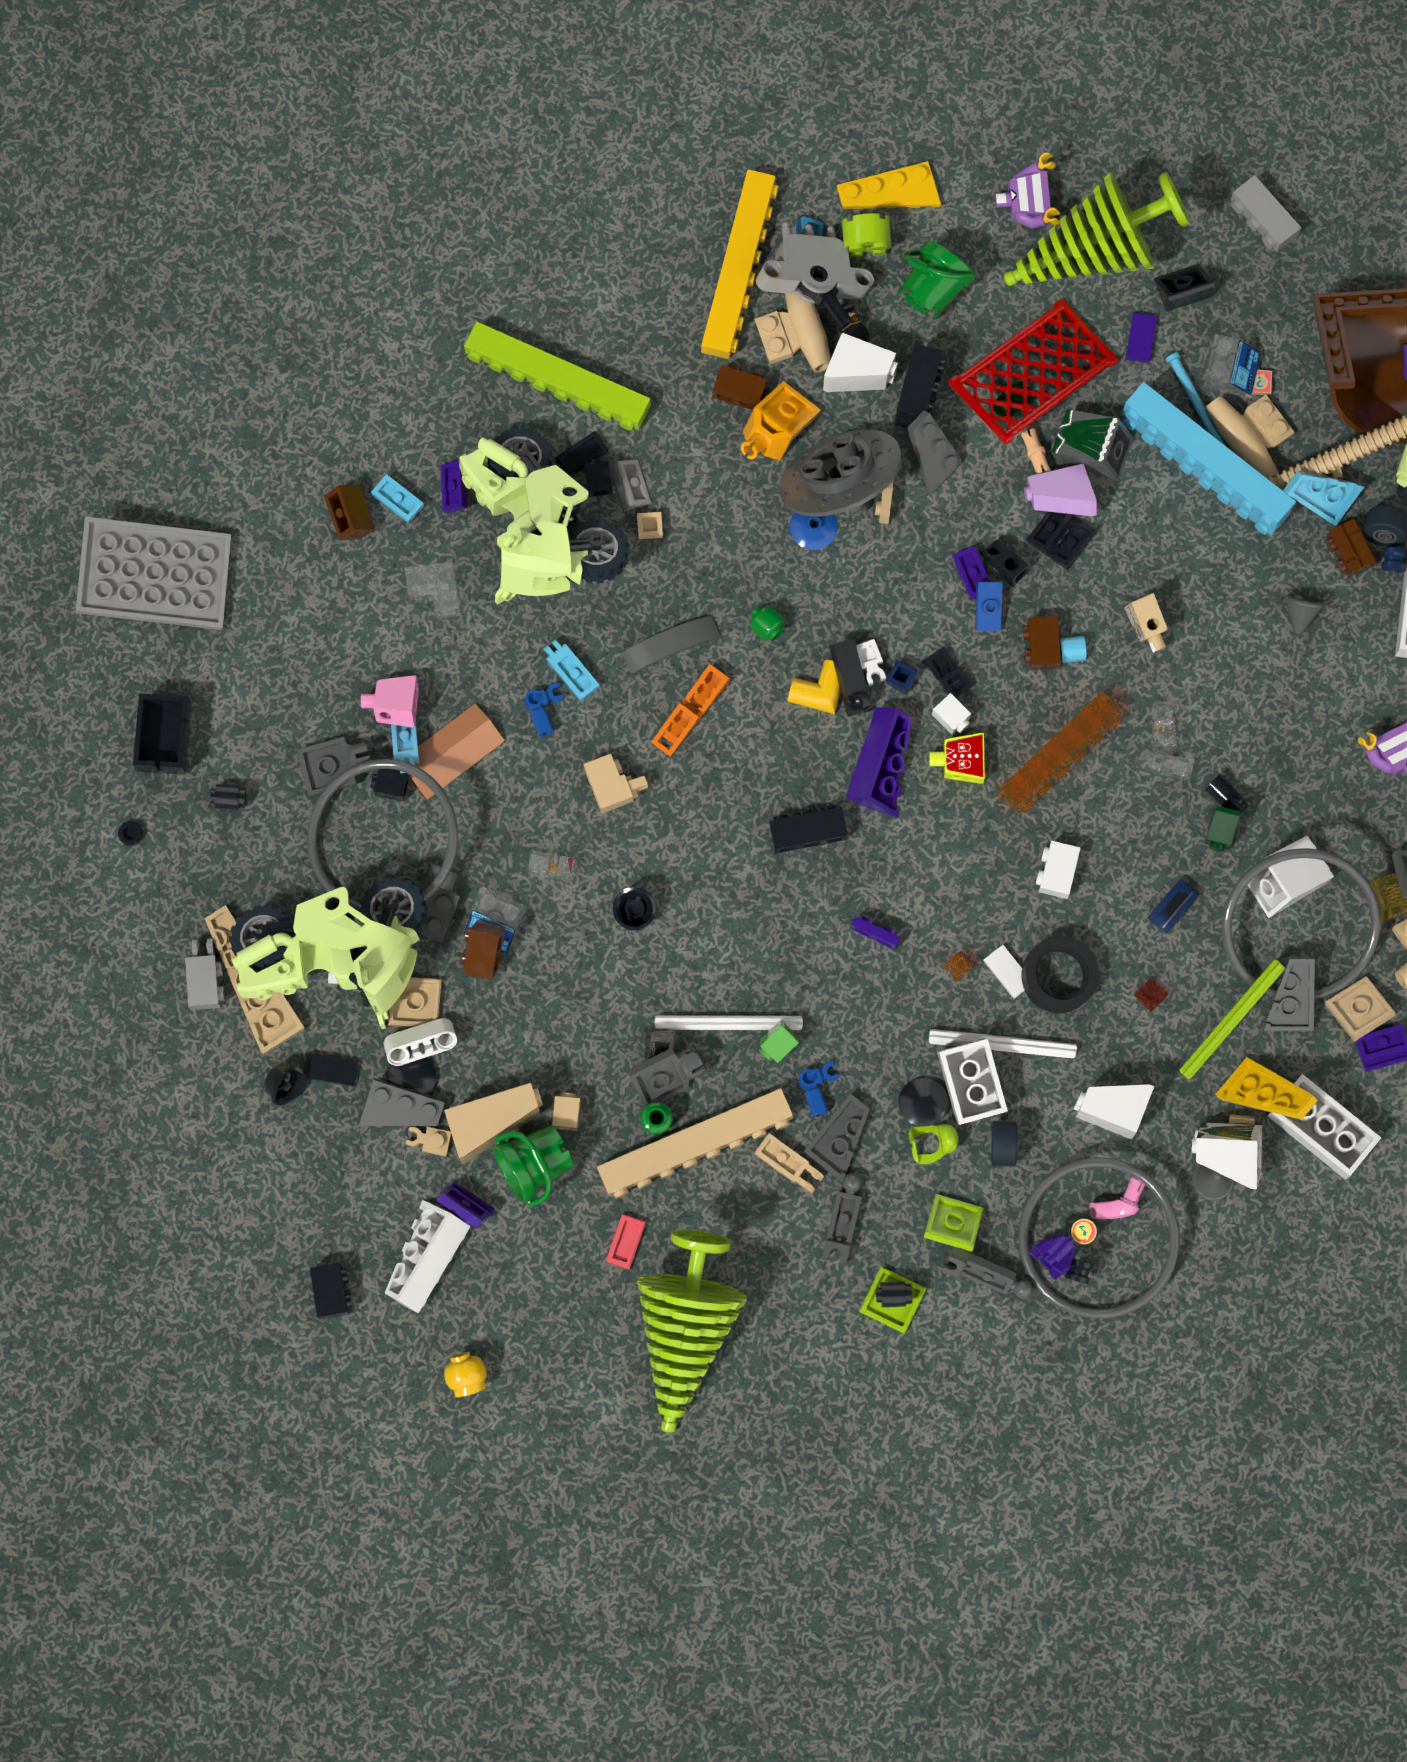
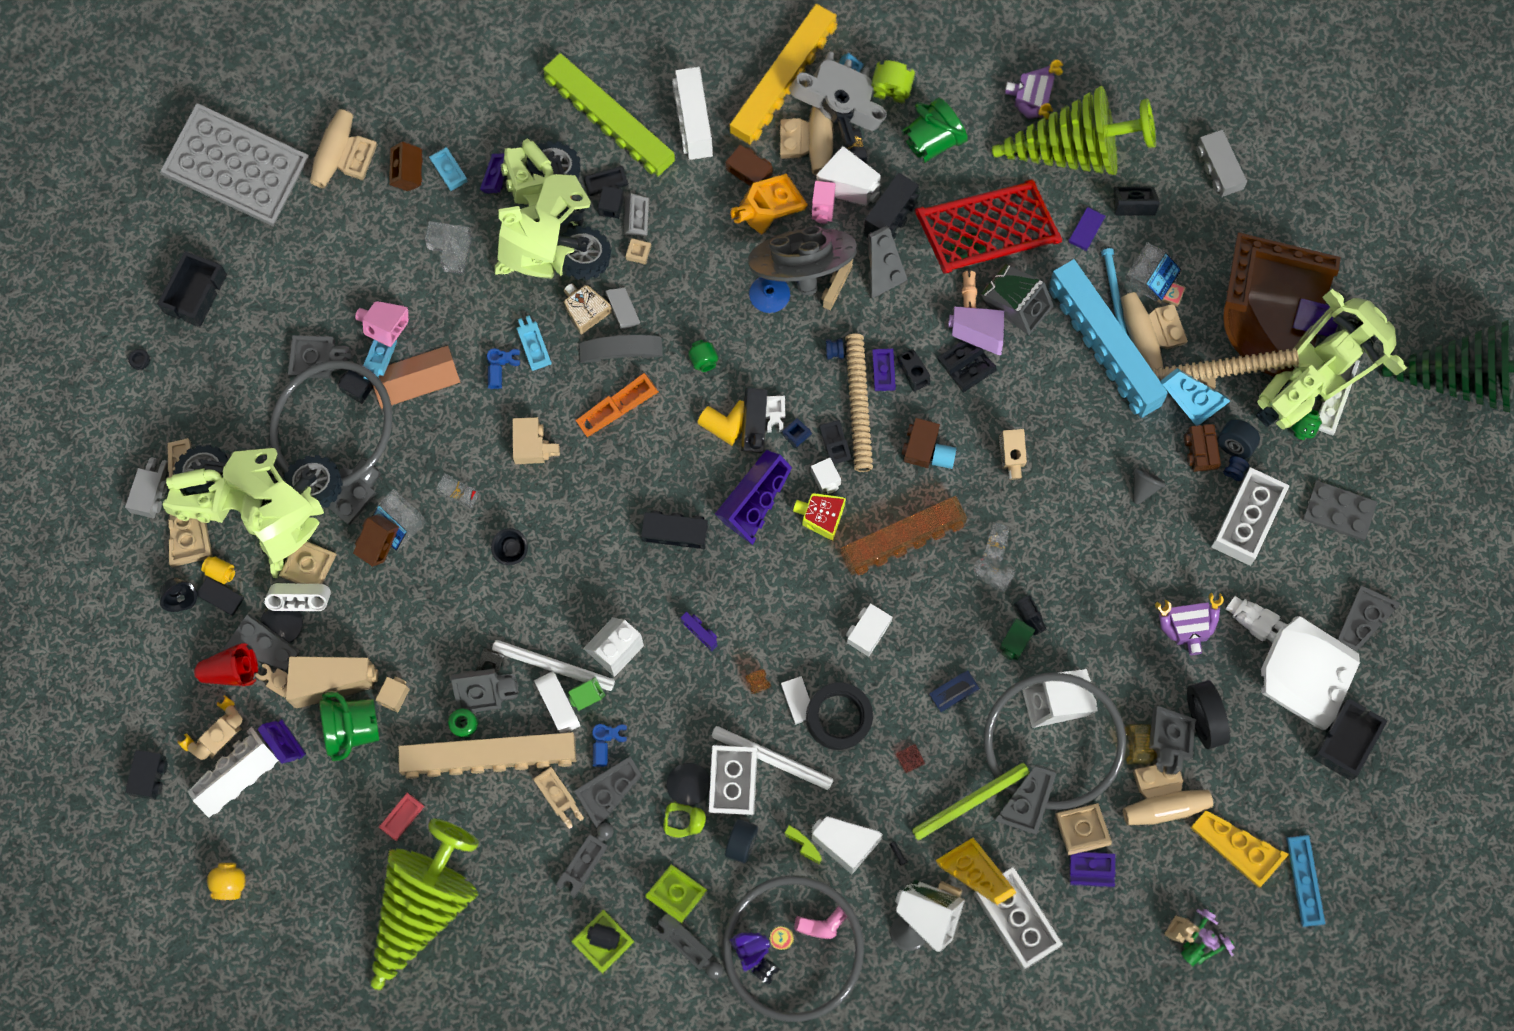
camera: 20 degrees right, 5 degrees down
(228, 796) = (225, 355): black brick -> none
(267, 518) = (340, 151): none -> tan plate
(318, 1040) = (218, 569): none -> yellow brick
(375, 1144) = (230, 667): none -> red cone
(393, 1222) = (217, 735): none -> tan torso
(614, 609) = (585, 307): none -> tan torso
(655, 344) = (692, 113): none -> white brick
(655, 596) = (622, 308): none -> light grey slope
(749, 1062) = (557, 703): none -> white beam
(788, 977) = (615, 645): none -> white slope
(839, 402) = (823, 201): none -> bright pink brick
(901, 187) = (929, 55): yellow wing -> none
(910, 567) = (834, 348): none -> dark blue wheel
(958, 620) = (858, 402): none -> tan piece
(988, 606) = (887, 399): blue plate -> none
(1077, 1128) = (808, 849): none -> lime slope
(1171, 1099) = (897, 852): none -> black piece

